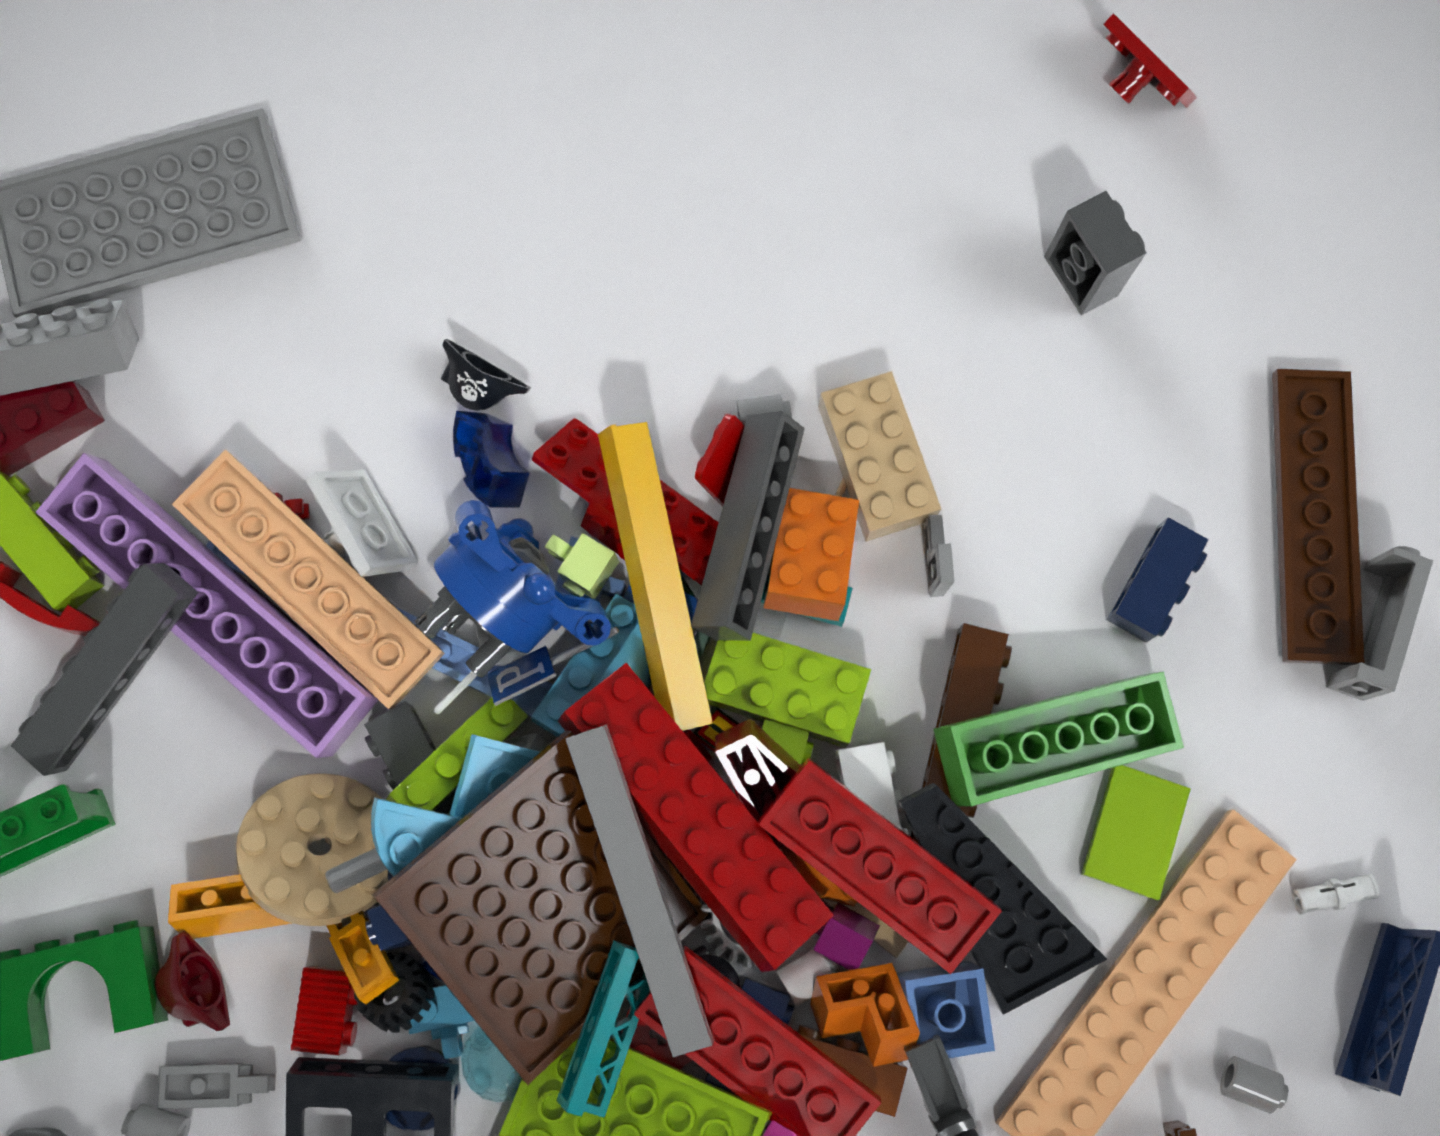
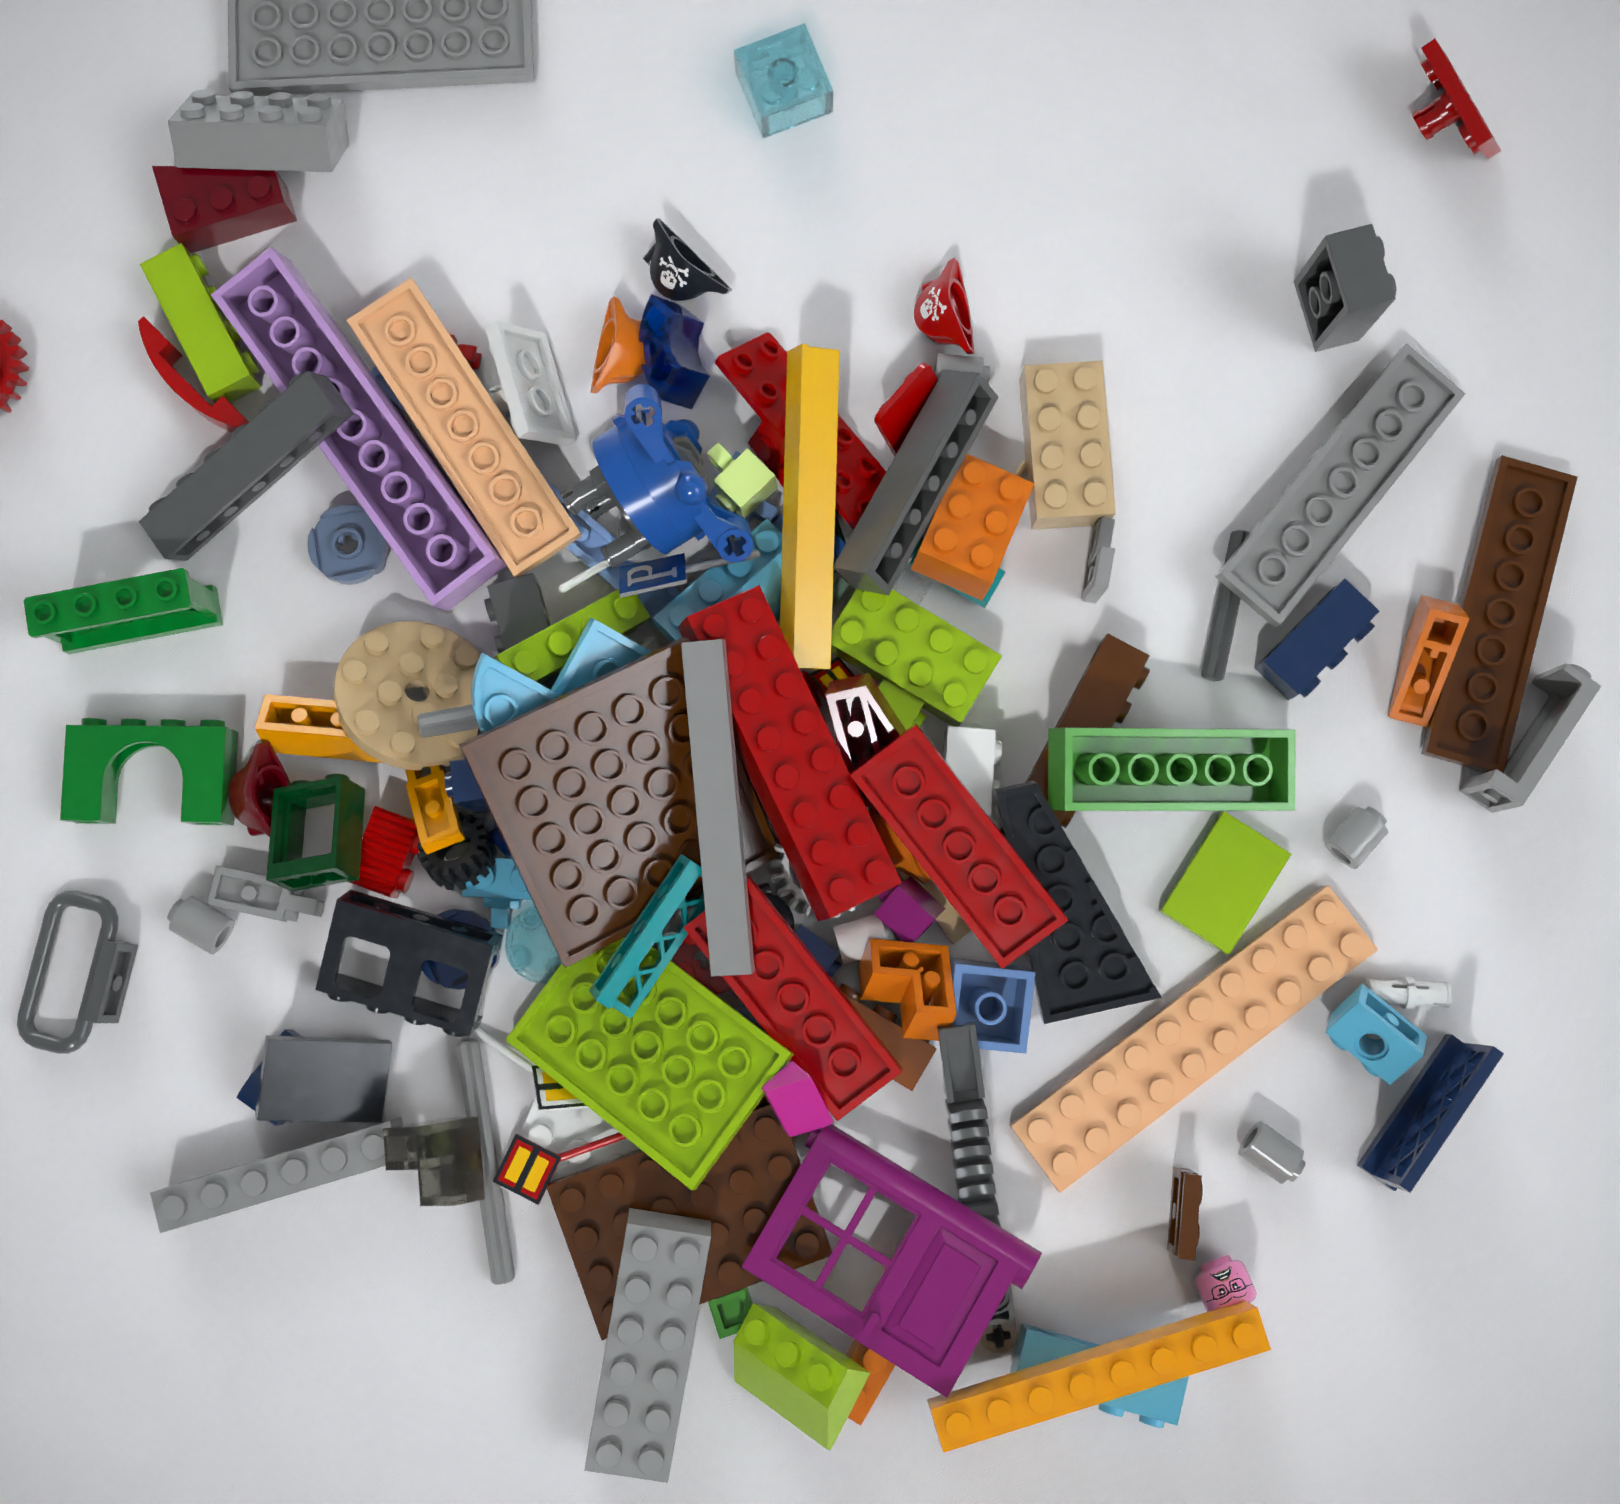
camera: 15 degrees right, 5 degrees up
(213, 738) = (331, 531): none -> sand blue plate
(222, 1013) = (286, 841): none -> dark green window
(438, 468) = (619, 349): none -> orange hat
(532, 186) = (783, 80): none -> clear light blue brick
(732, 359) = (944, 309): none -> red hat
(1066, 568) = (1223, 621): none -> dark grey axle
(1138, 434) = (1340, 485): none -> light grey plate
(1247, 756) = (1357, 836): none -> light grey brick
(1263, 572) = (1426, 659): none -> orange slope
(1342, 949) = (1367, 1013): none -> medium azure brick

